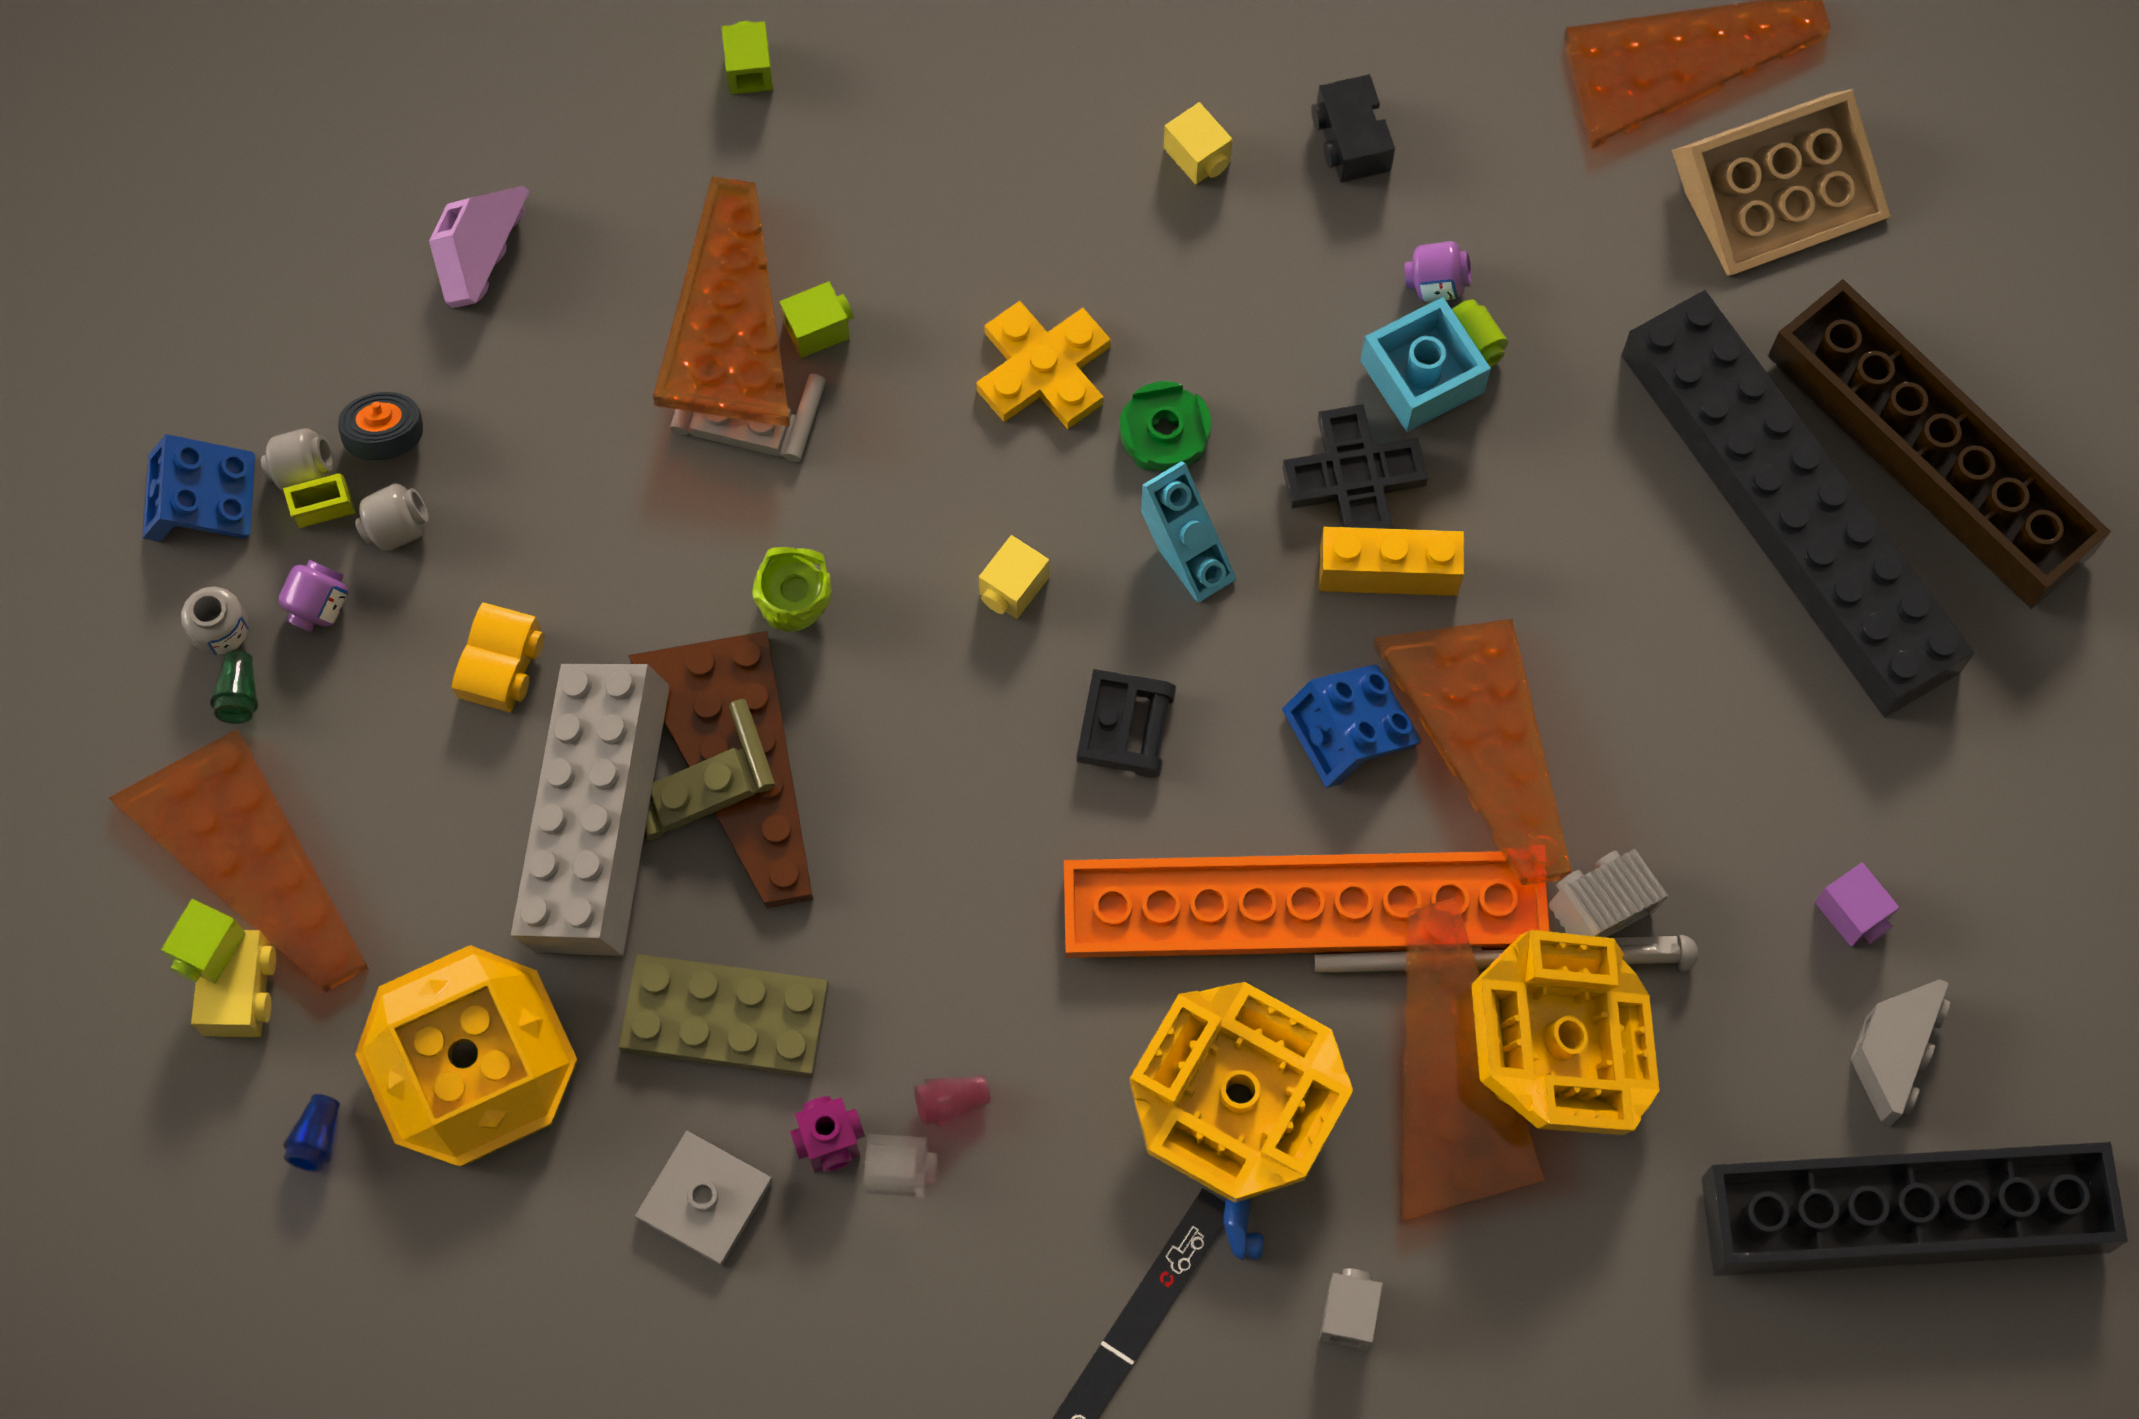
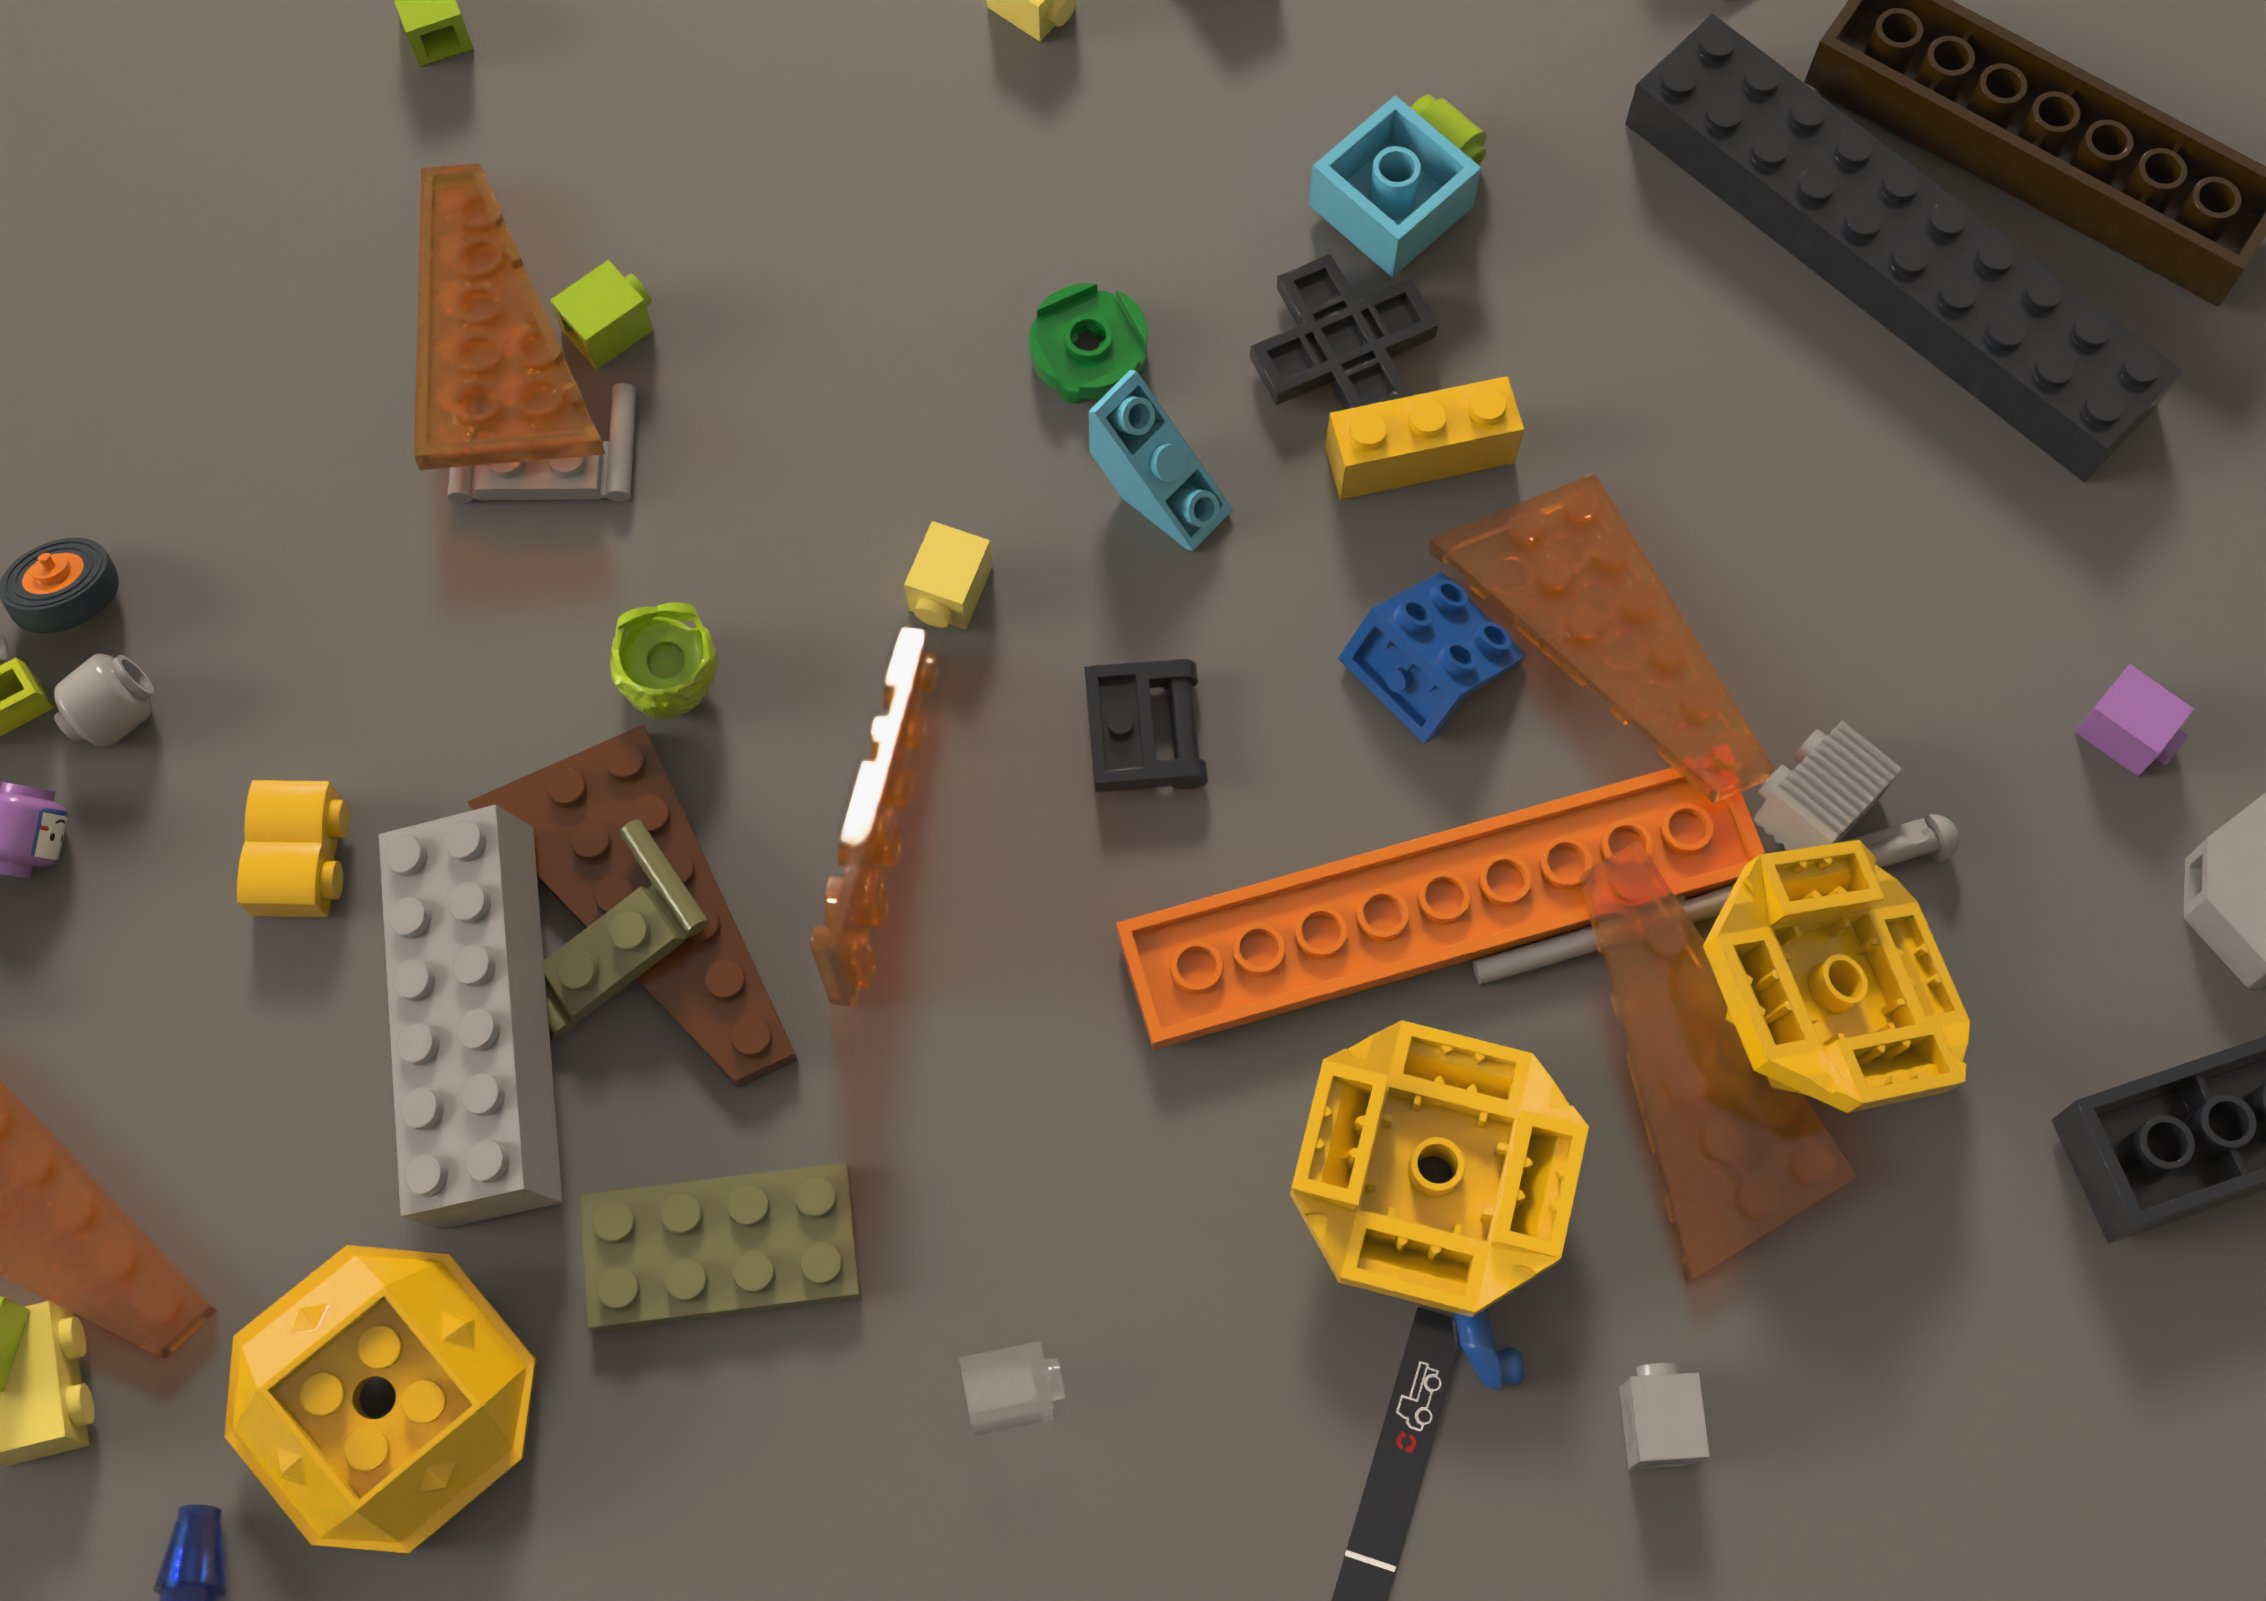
camera: 15 degrees left, 0 degrees up
(473, 240) = (125, 320): lavender slope -> none
(704, 1198) = (757, 1504): light grey plate -> none
(828, 1151) = (909, 1396): magenta brick -> none
(904, 750) = (869, 833): none -> clear orange wing
(948, 1098) = (1050, 1278): clear pink cone -> none
(1043, 365) = (911, 303): yellow plate -> none
(1439, 271) = (1374, 71): medium lavender head -> none

